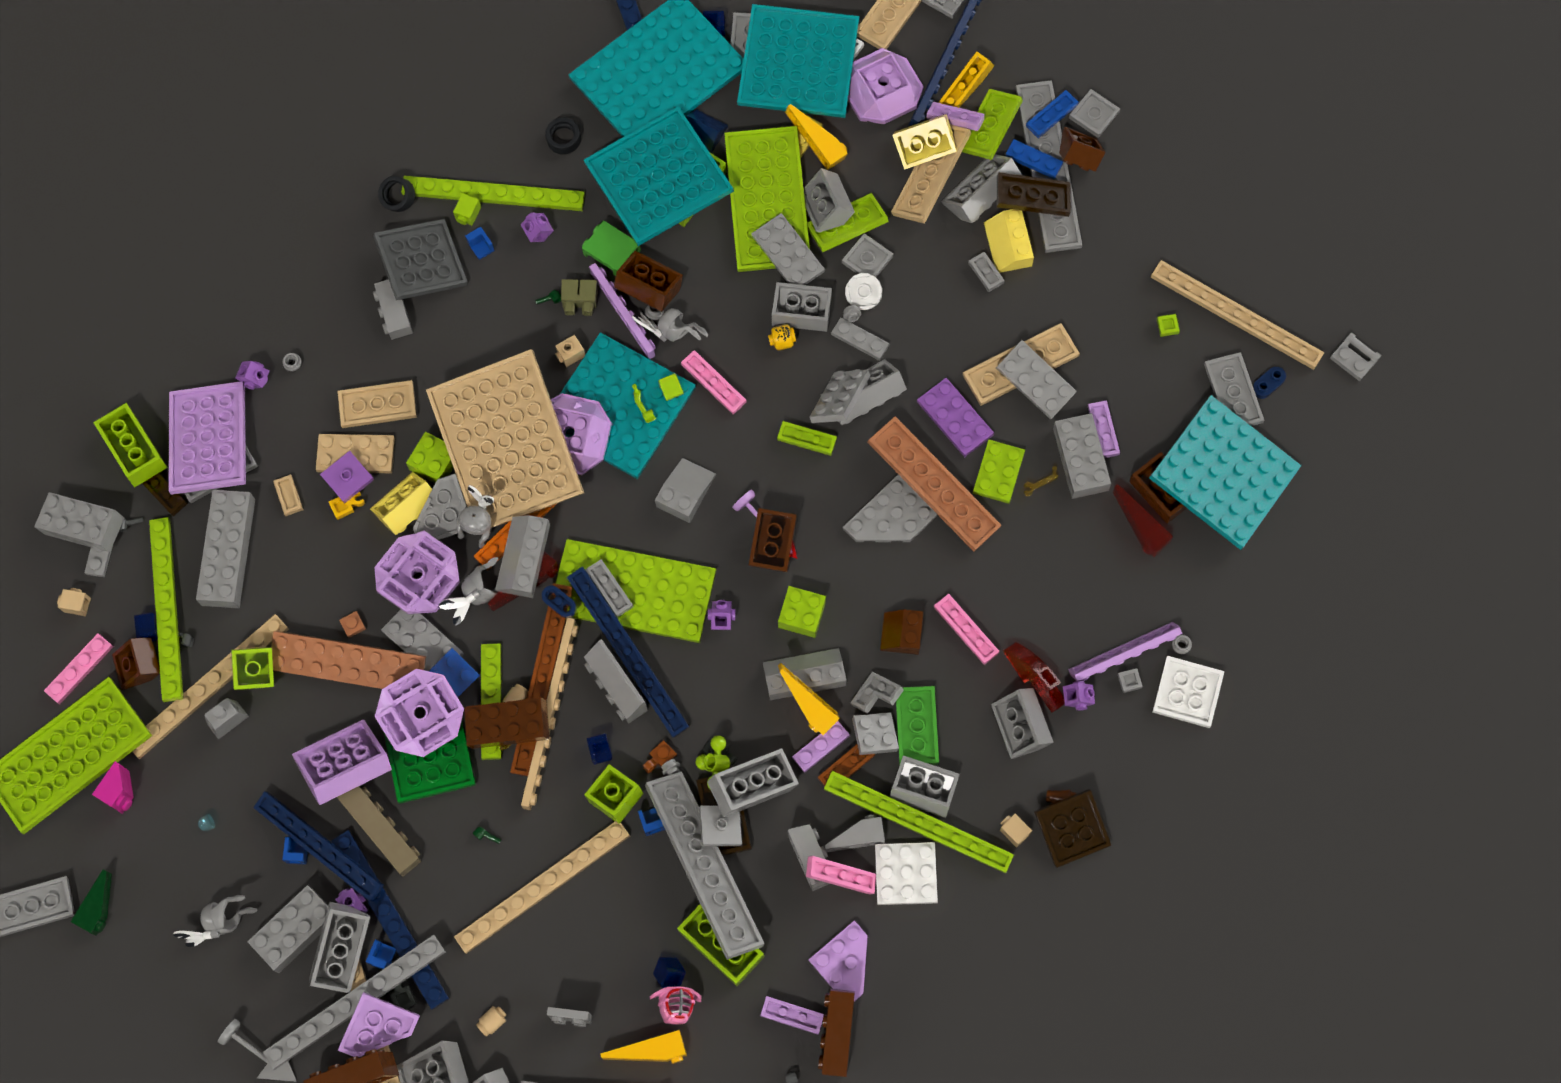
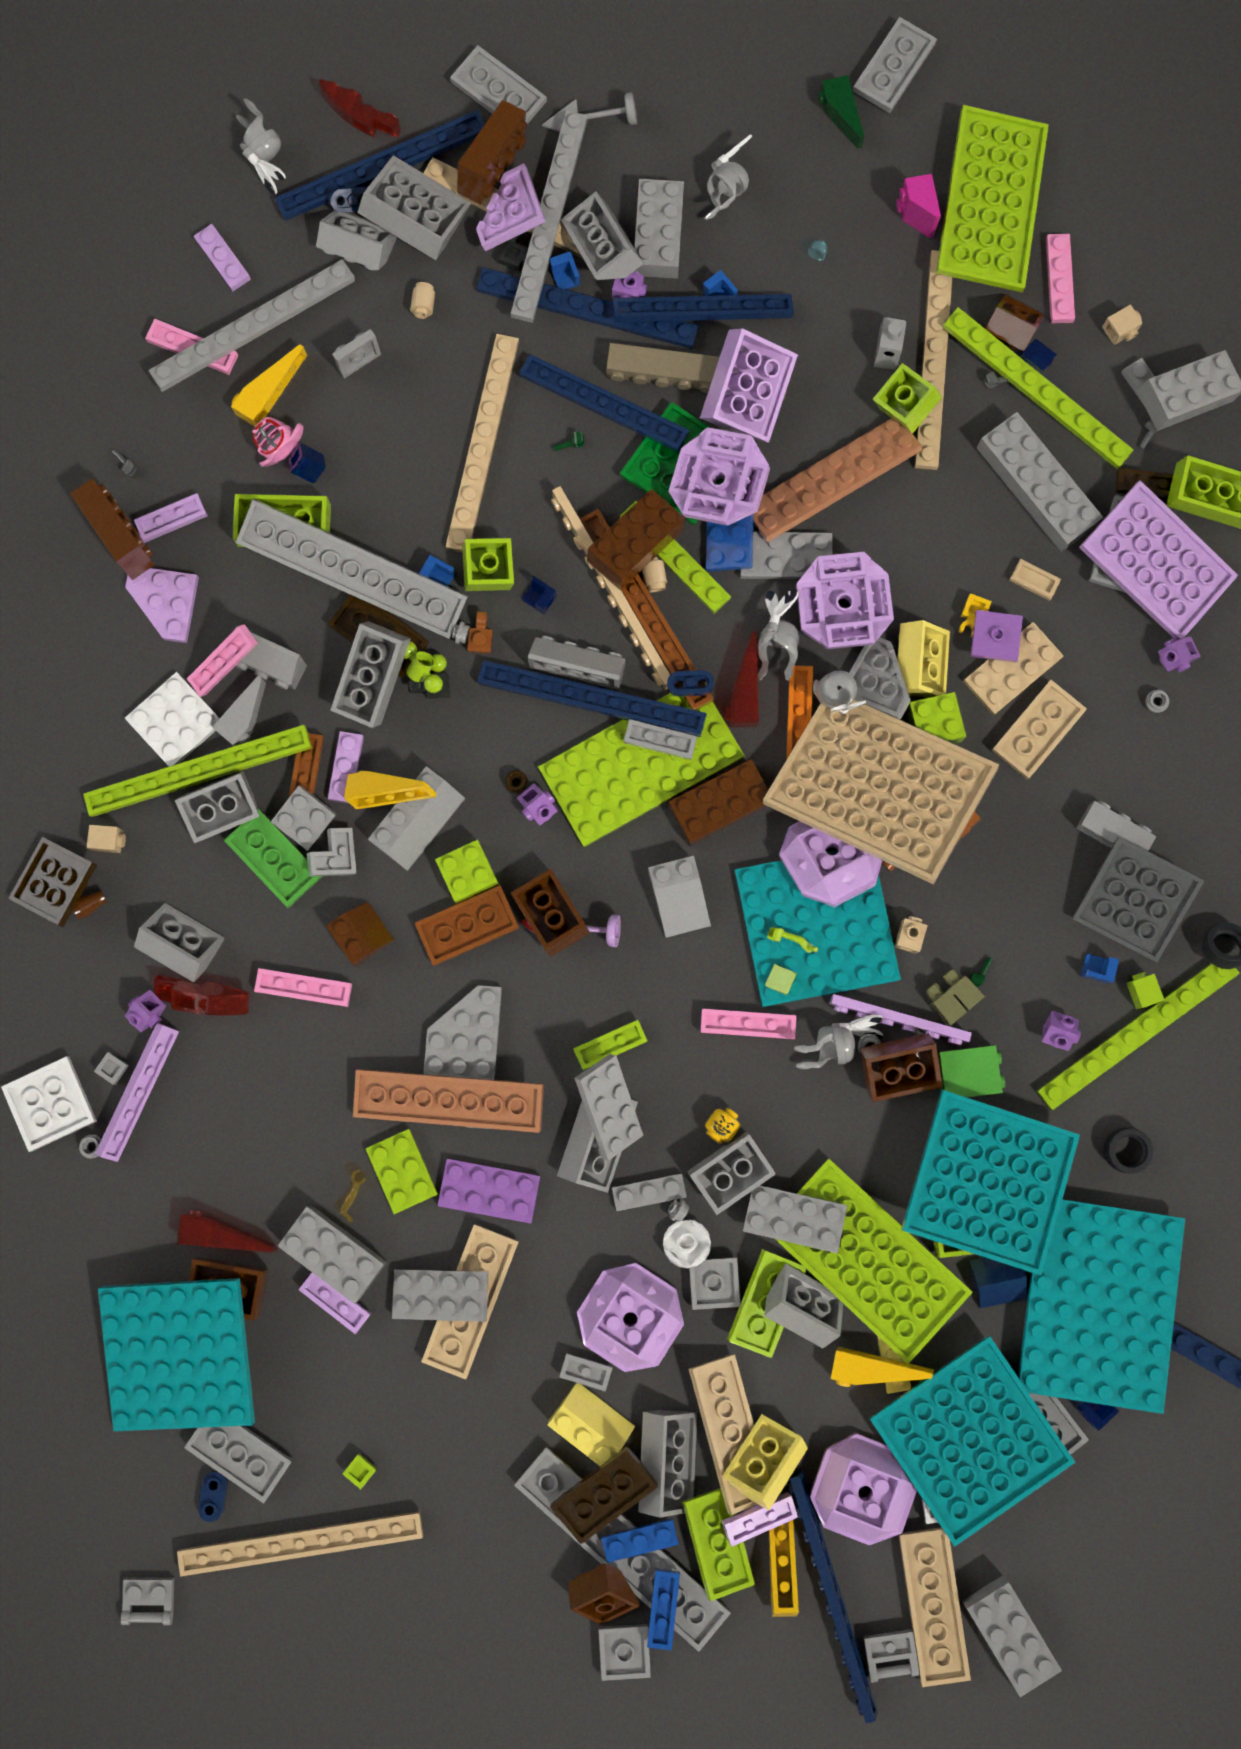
camera: 135 degrees right, 10 degrees up
(352, 624) = (862, 517): nougat plate -> none
(441, 838) = (604, 403): none -> dark blue plate
(523, 555) = (763, 697): light grey slope -> none
(608, 522) = (719, 802): none -> reddish brown brick
(717, 829) = (367, 606): light grey plate -> none
(721, 638) = (513, 775): none -> dark brown plate
(834, 580) = (466, 925): none -> dark orange plate
(929, 295) = (636, 1291): none -> lavender piece

